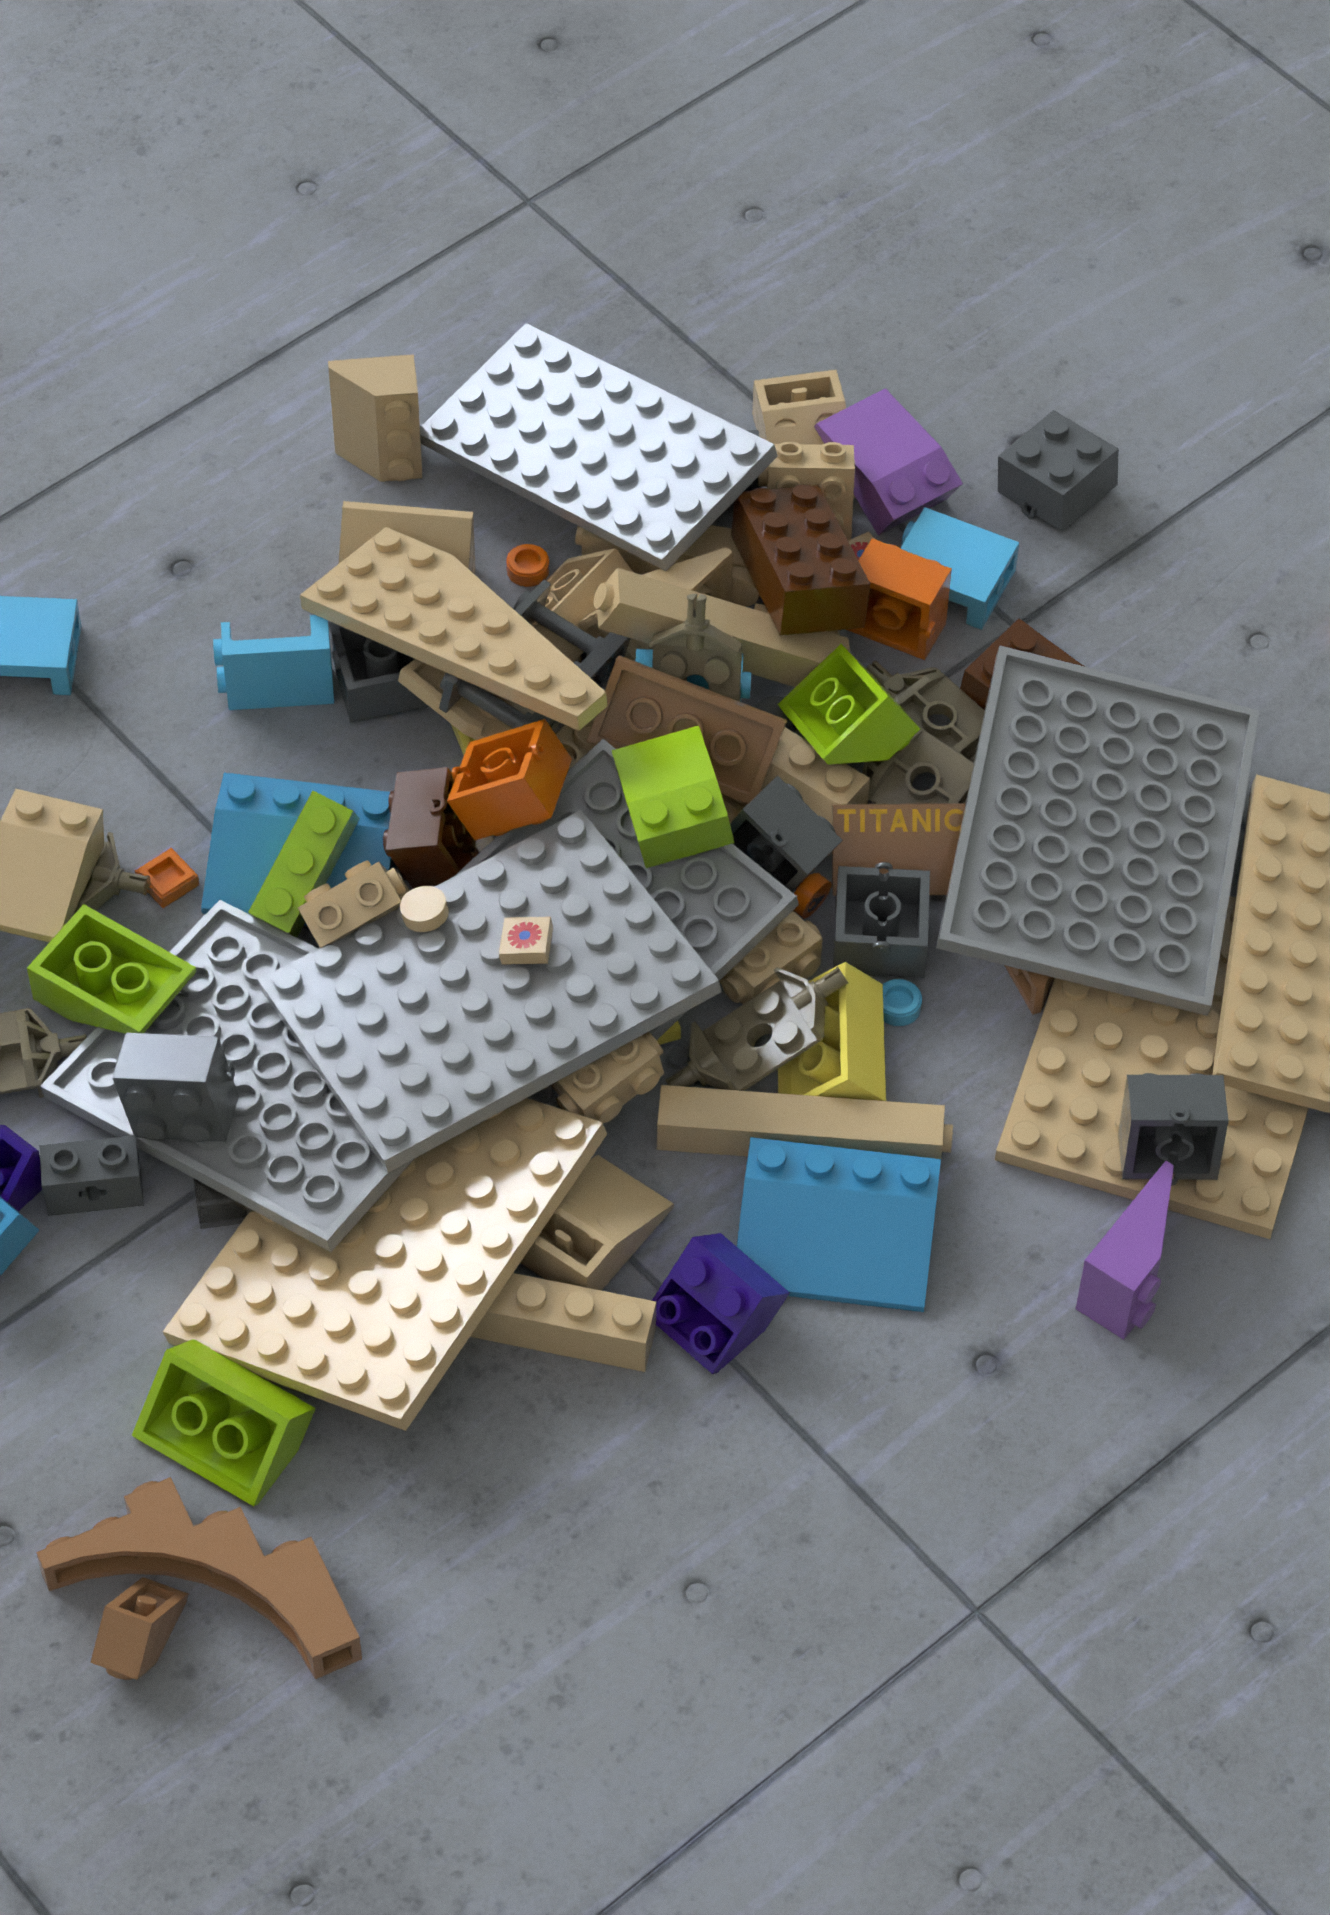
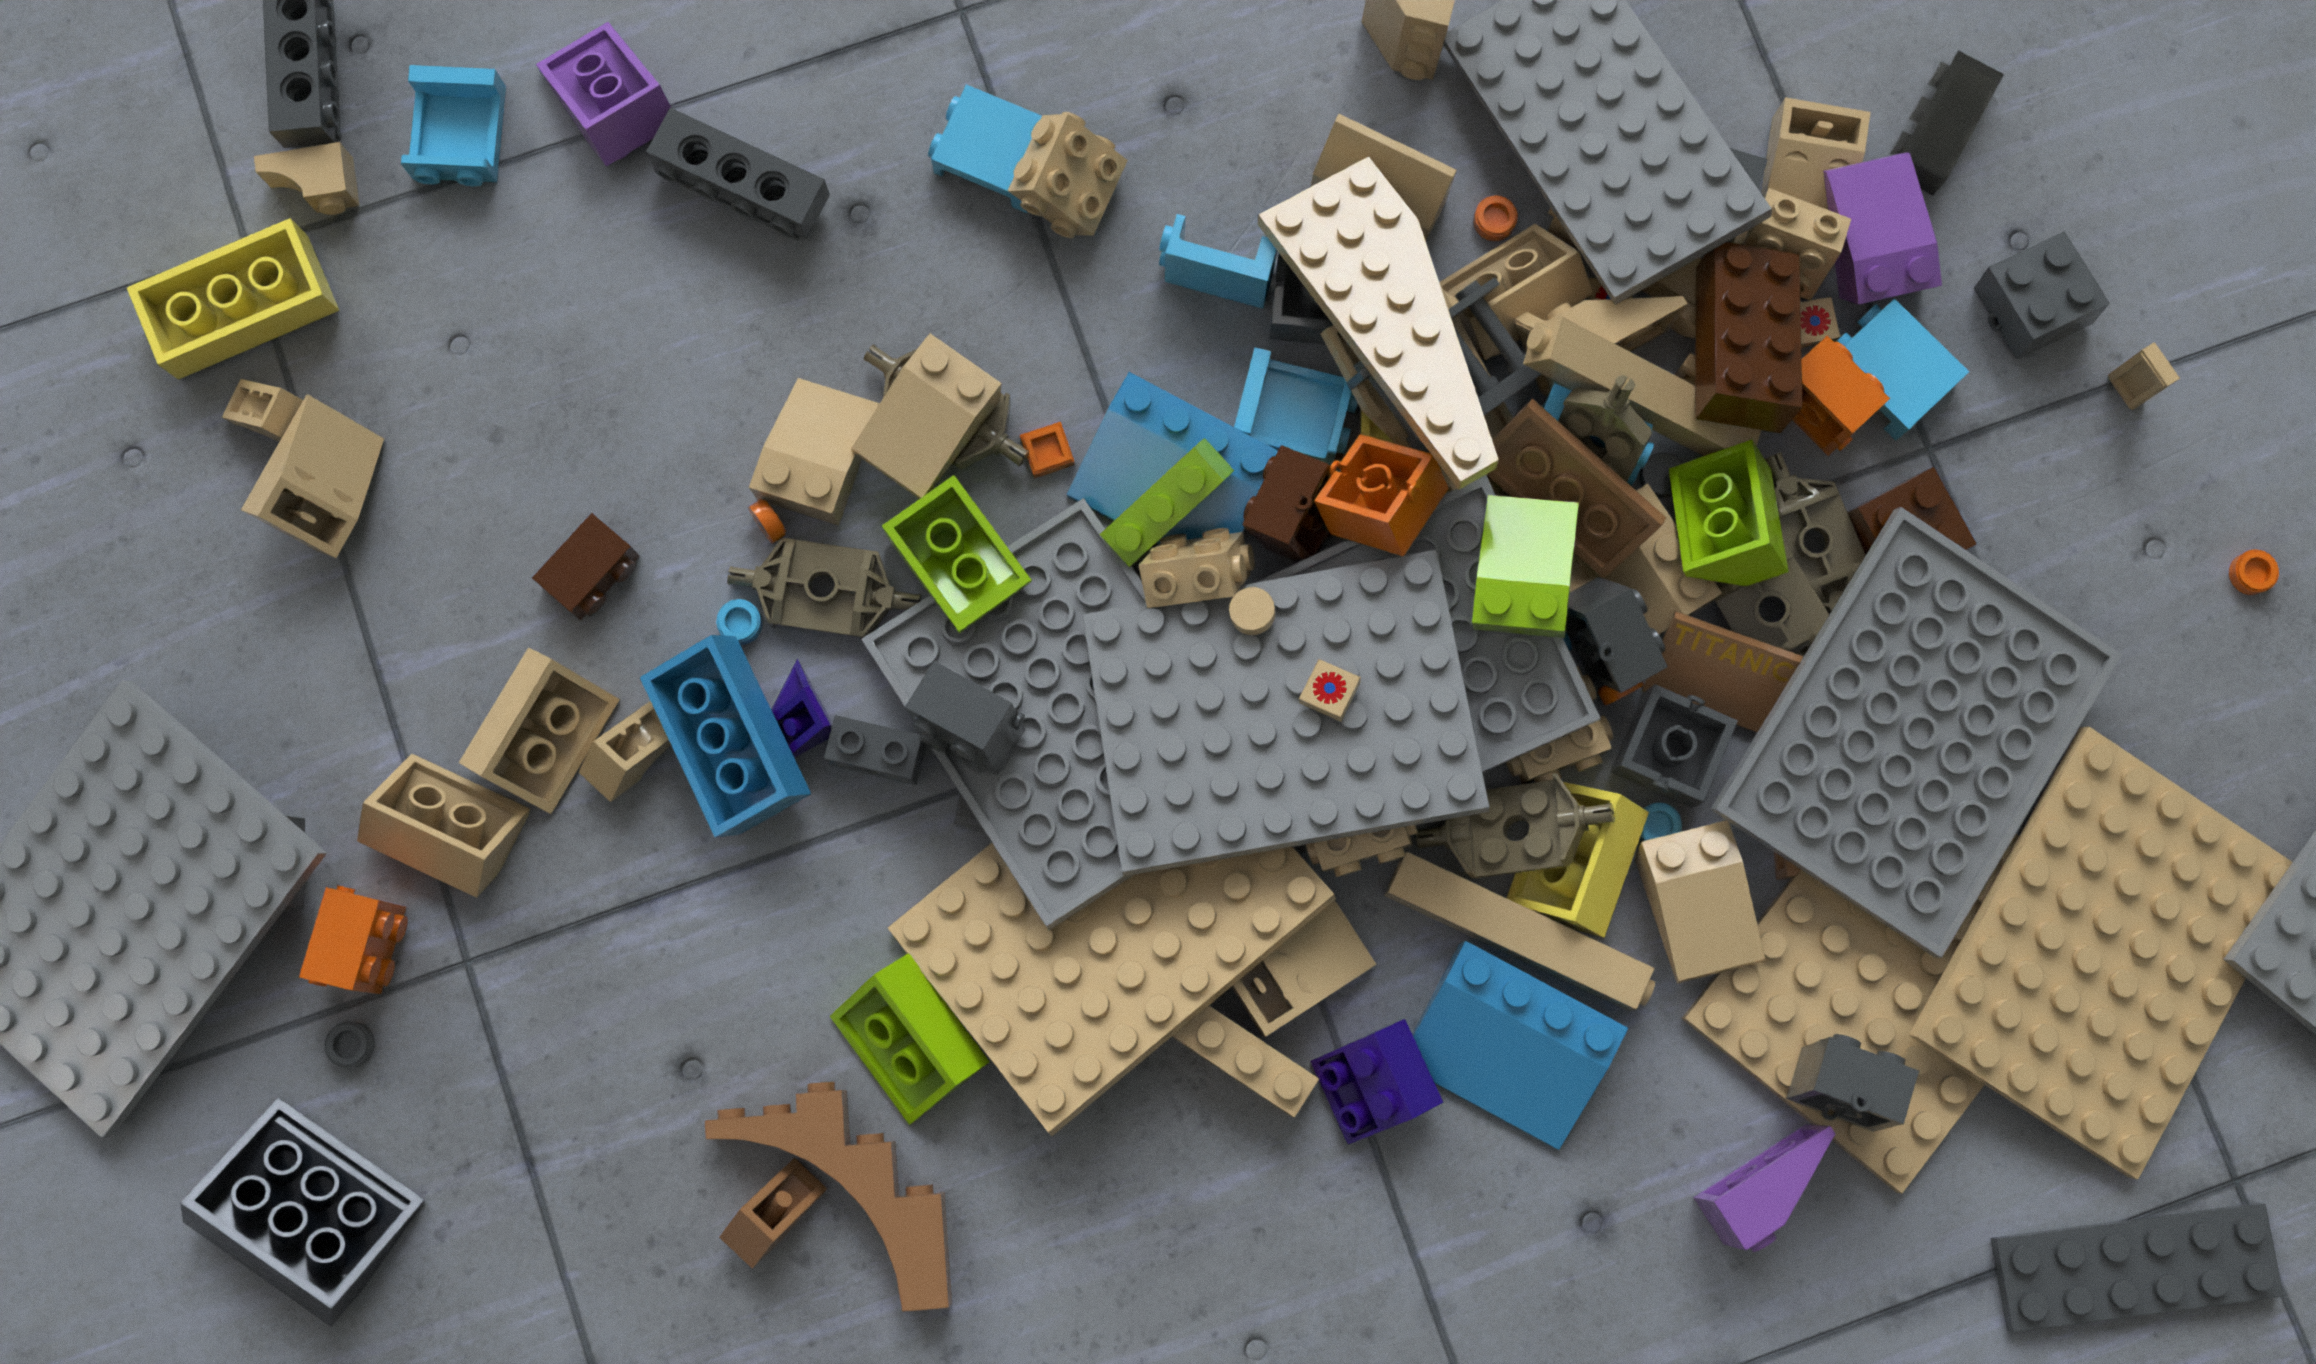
camera: 20 degrees right, 25 degrees up
(100, 636) = (1067, 174): none -> tan brick
(375, 759) = (1295, 407): none -> medium azure panel
(912, 360) = (1947, 118): none -> clear smoke brick
(962, 1037) = (1700, 901): none -> tan slope
(1177, 499) = (2143, 376): none -> tan tile

